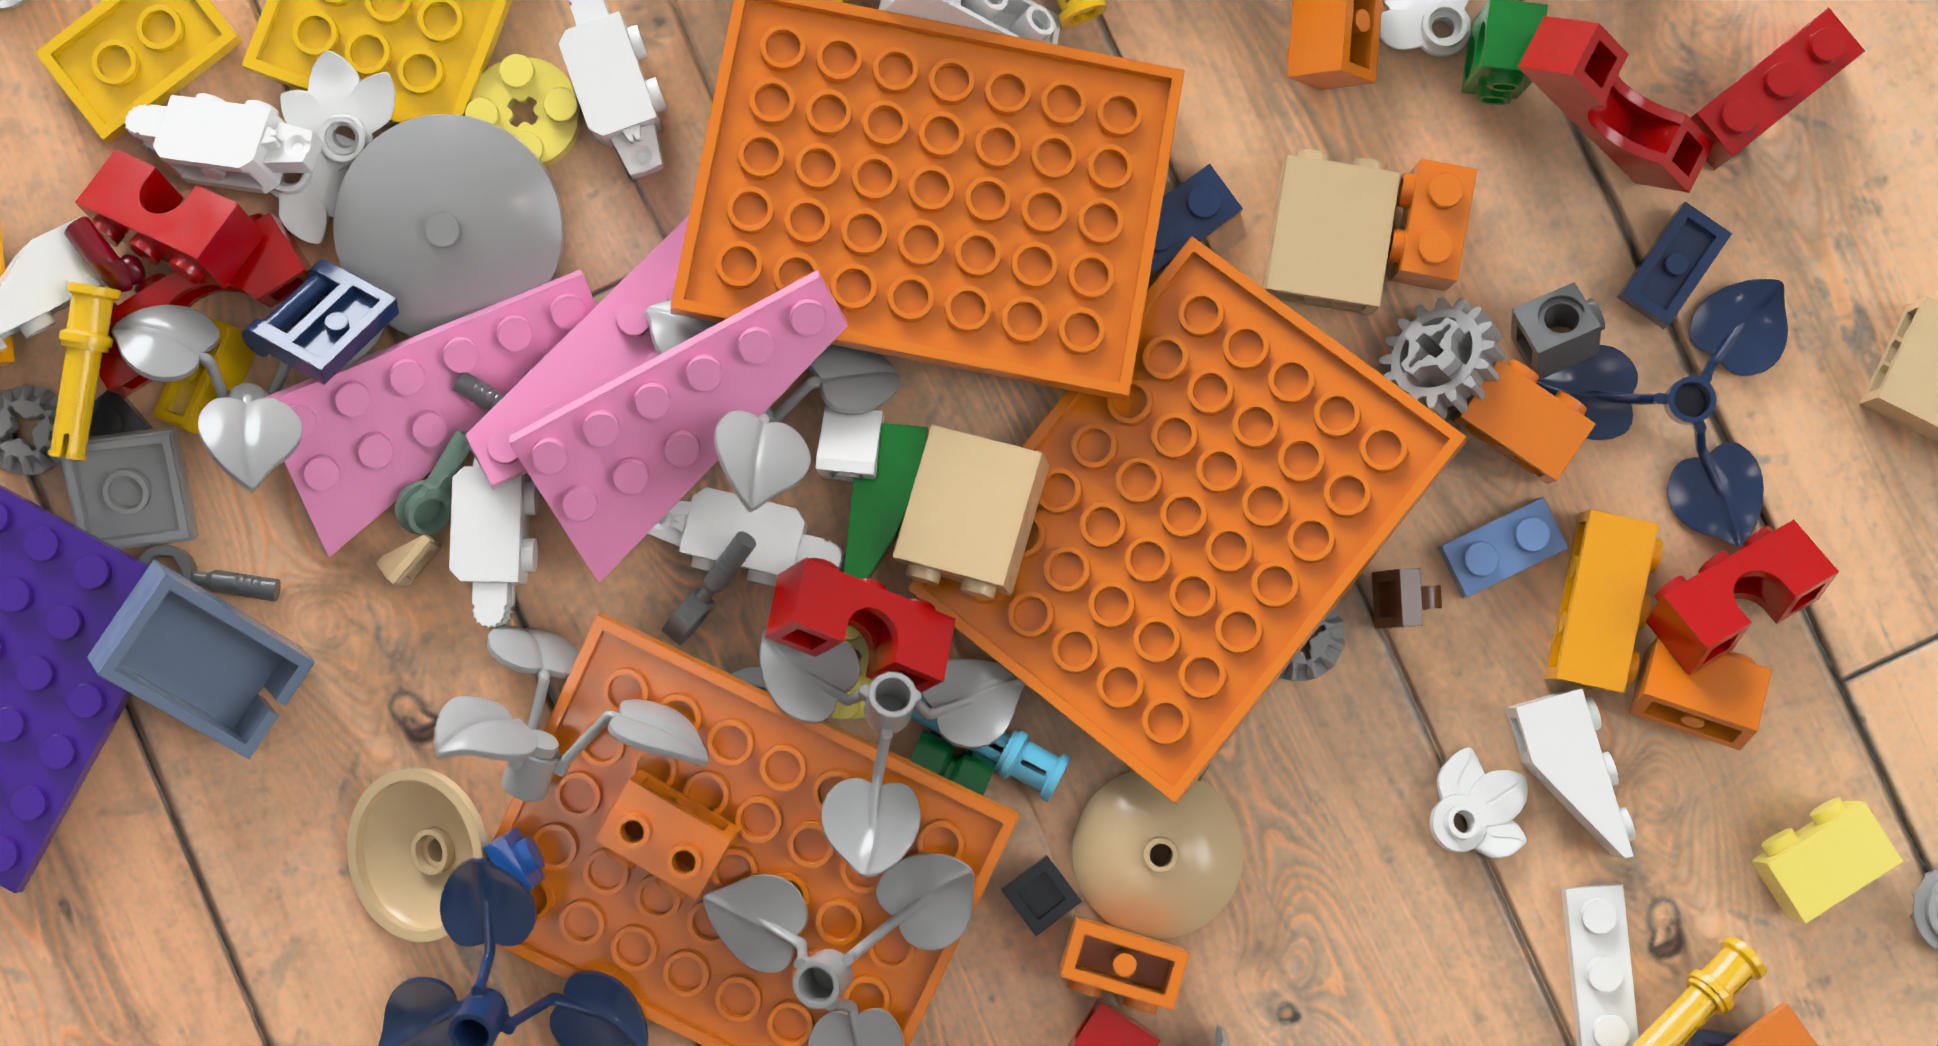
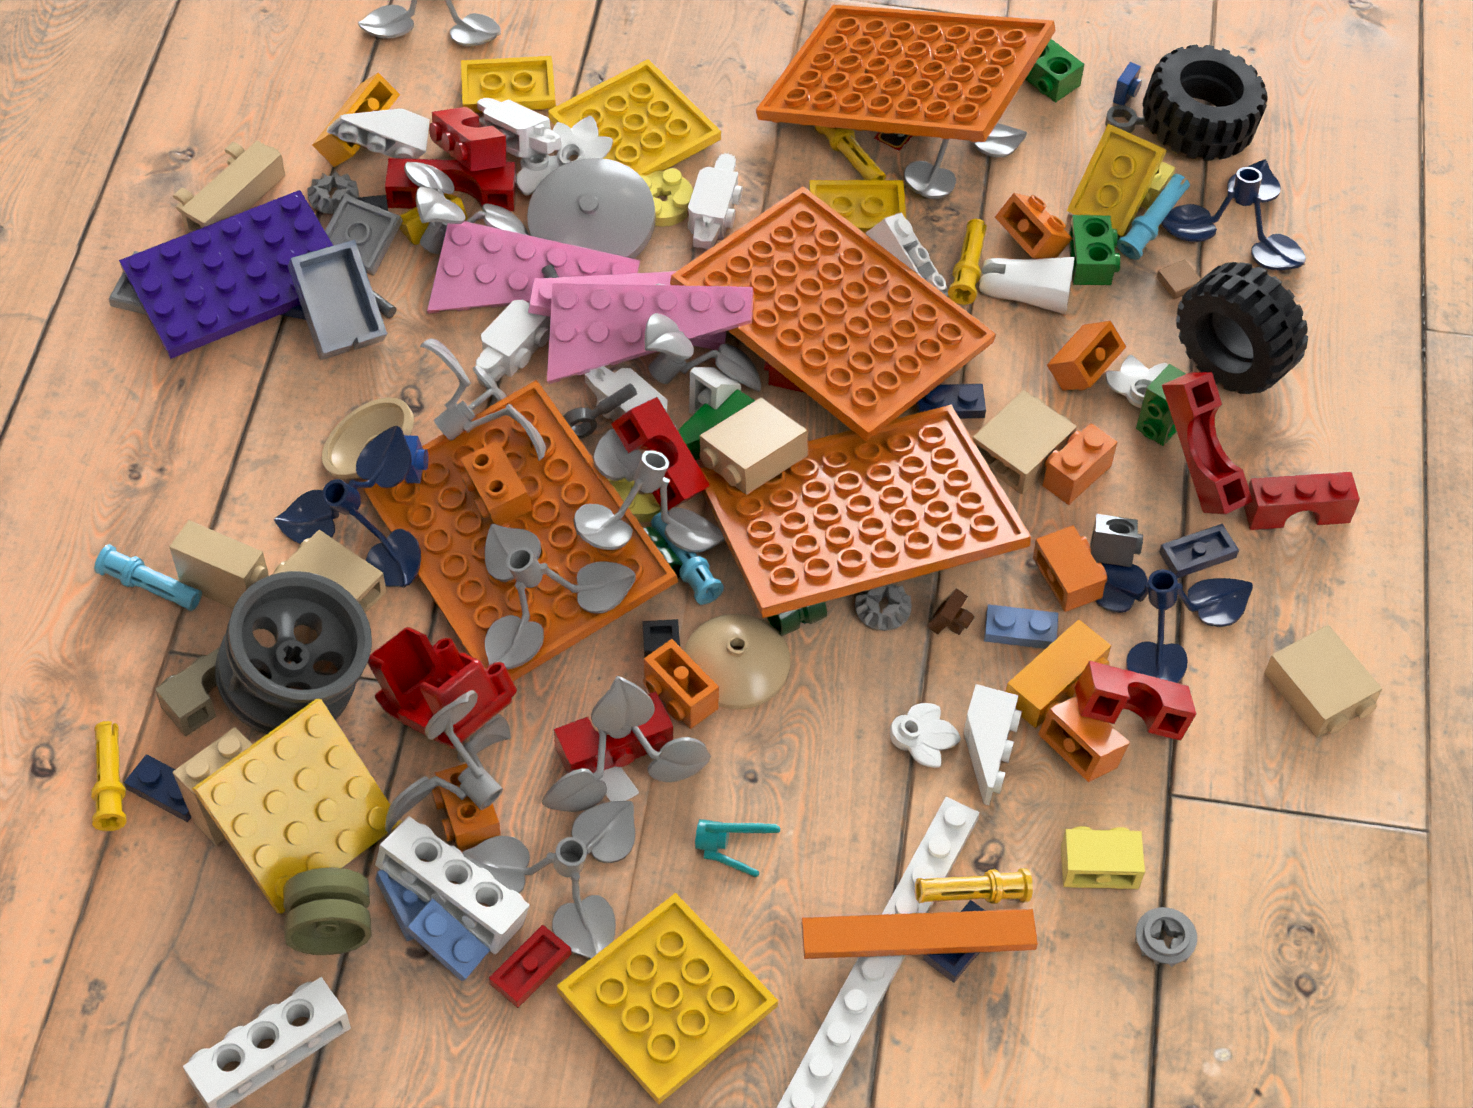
camera: 30 degrees right, 30 degrees down
(85, 341) = (391, 157): yellow pin -> none
(102, 259) = (426, 137): dark red arm -> none
(331, 331) = (504, 208): dark blue plate -> none
(408, 560) = (465, 330): tan slope -> none
(426, 503) = (488, 309): sand green plate -> none
(1444, 355) = (1049, 513): light grey gear -> none

